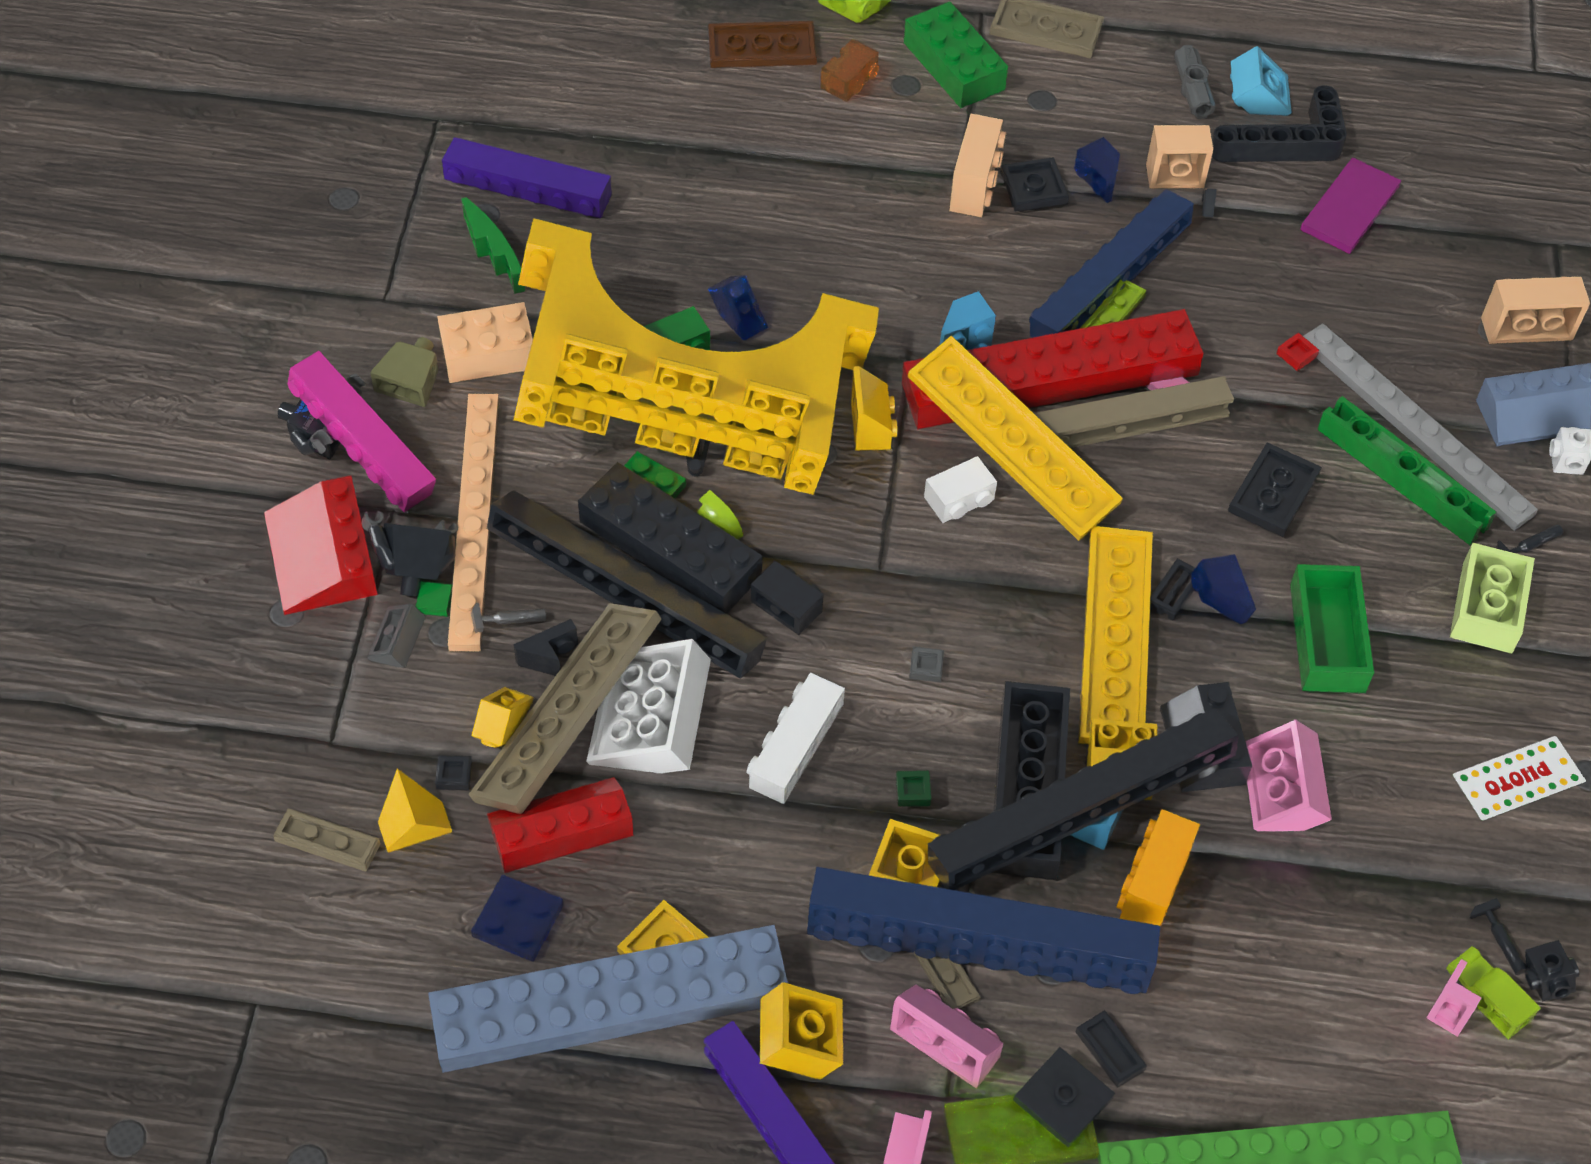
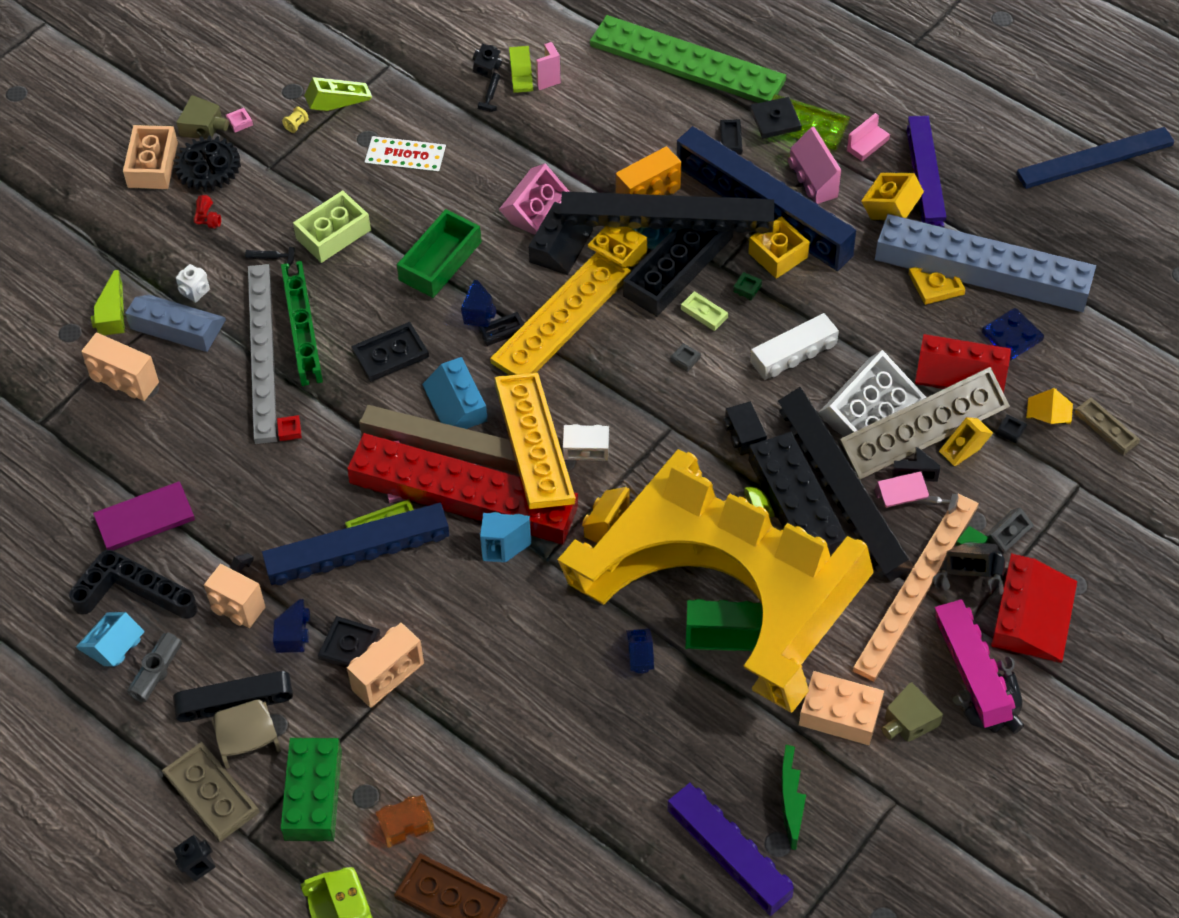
camera: 145 degrees left, 0 degrees up
(551, 605) = (902, 489): none -> bright pink panel
(946, 733) = (704, 311): none -> yellowish green plate
(1055, 65) = (244, 729): none -> dark tan piece
(1098, 93) = (210, 699): none -> black beam
(1148, 474) = (455, 395): none -> dark azure slope

